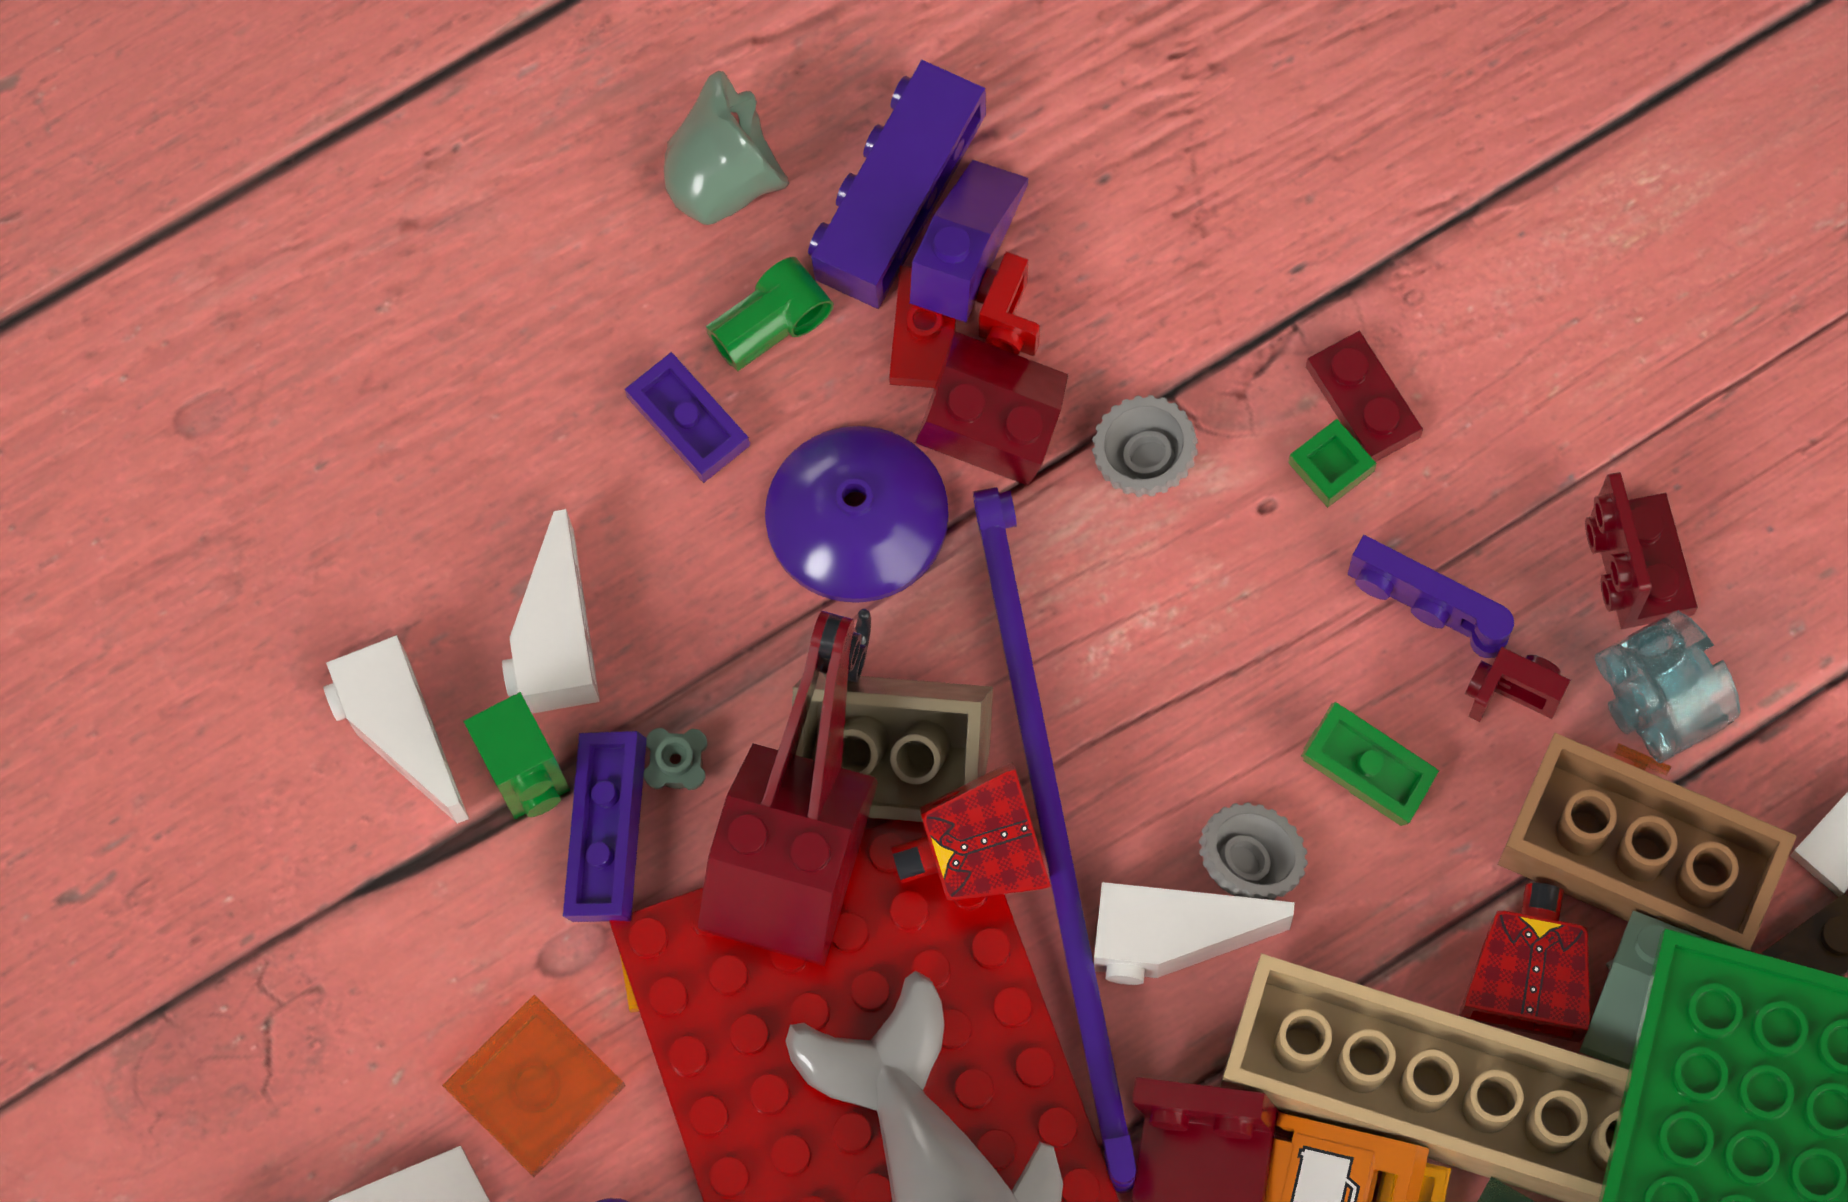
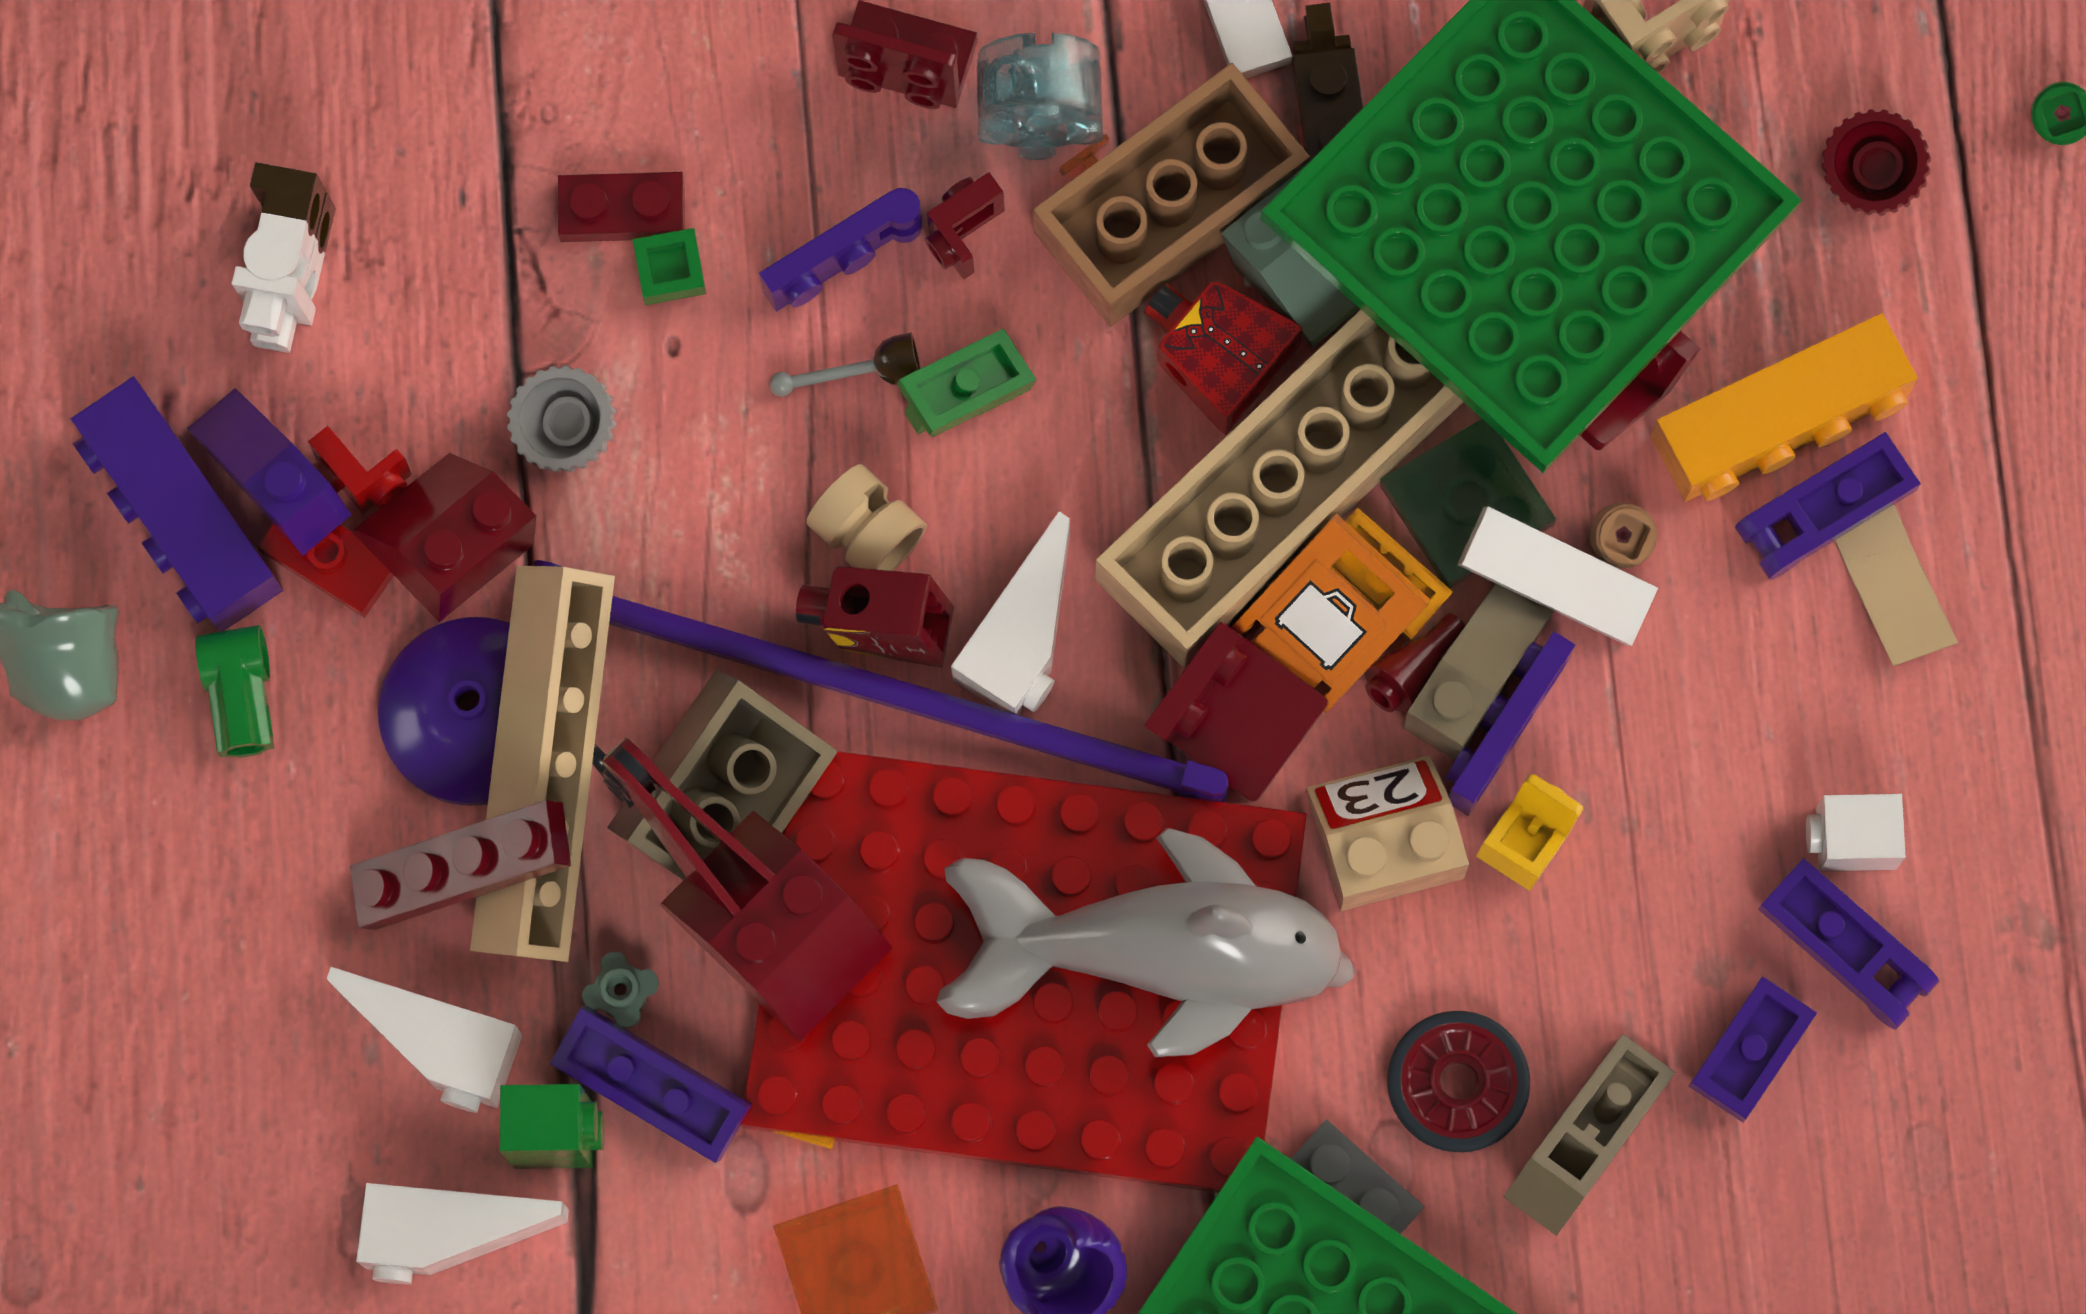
camera: 65 degrees left, 5 degrees up
(687, 417) = (294, 815): dark purple plate -> none
(704, 565) = (460, 865): none -> plate
(841, 574) = (546, 746): none -> tan brick
(977, 840) = (858, 750): torso -> none
(1119, 801) = (881, 614): none -> dark red torso
(1155, 147) = (283, 255): none -> white hips
(1196, 737) = (862, 520): none -> tan wheel
(1253, 852) = (990, 525): light grey hat -> none
(1355, 691) = (892, 361): none -> hinge

